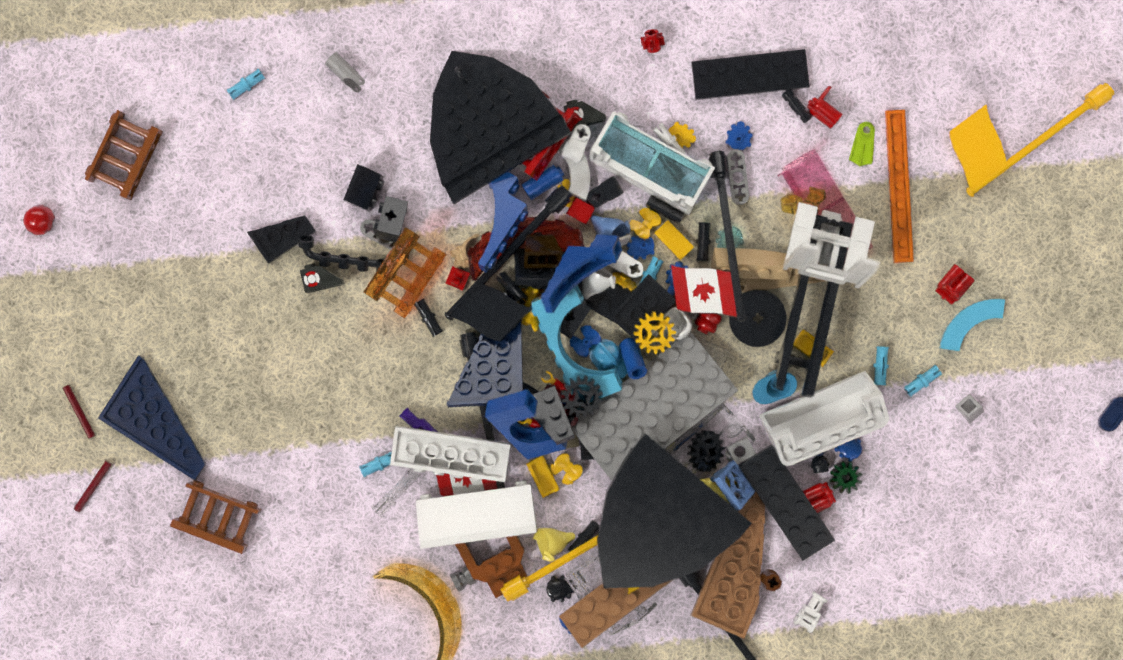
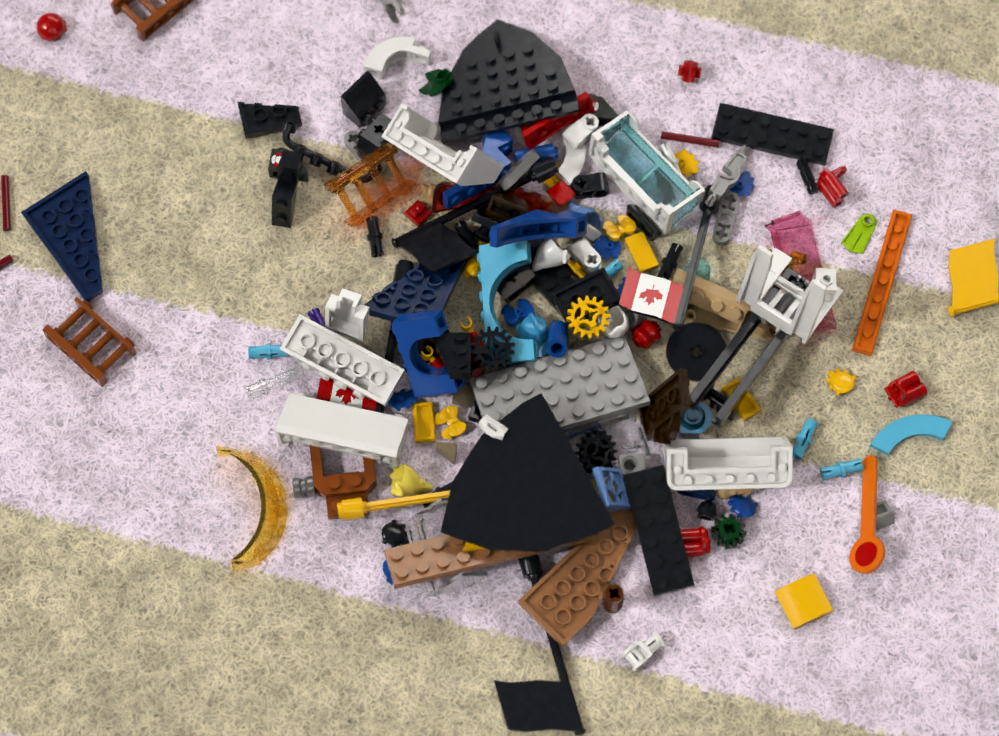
camera: 20 degrees right, 20 degrees down
(330, 306) = (286, 188): none -> black arch
(367, 124) = (393, 50): none -> white arch
(422, 143) = (438, 80): none -> dark green plate
(429, 215) = (417, 138): none -> white windscreen
(439, 415) = (347, 315): none -> white piece
(516, 464) = (402, 399): none -> blue piece
(536, 209) = (518, 169): none -> light grey beam
(575, 497) = (447, 450): none -> dark tan slope
(615, 482) = (492, 427): none -> white piece
(676, 108) = (690, 139): none -> dark red bar
(728, 128) = (724, 182): none -> light grey piece
(757, 397) = (667, 404): none -> dark brown plate
(857, 226) = (828, 278): none -> white brick
(894, 297) = (840, 381): none -> yellow piece
(931, 514) = (804, 601): none -> yellow slope
(971, 451) = (869, 550): none -> orange piece

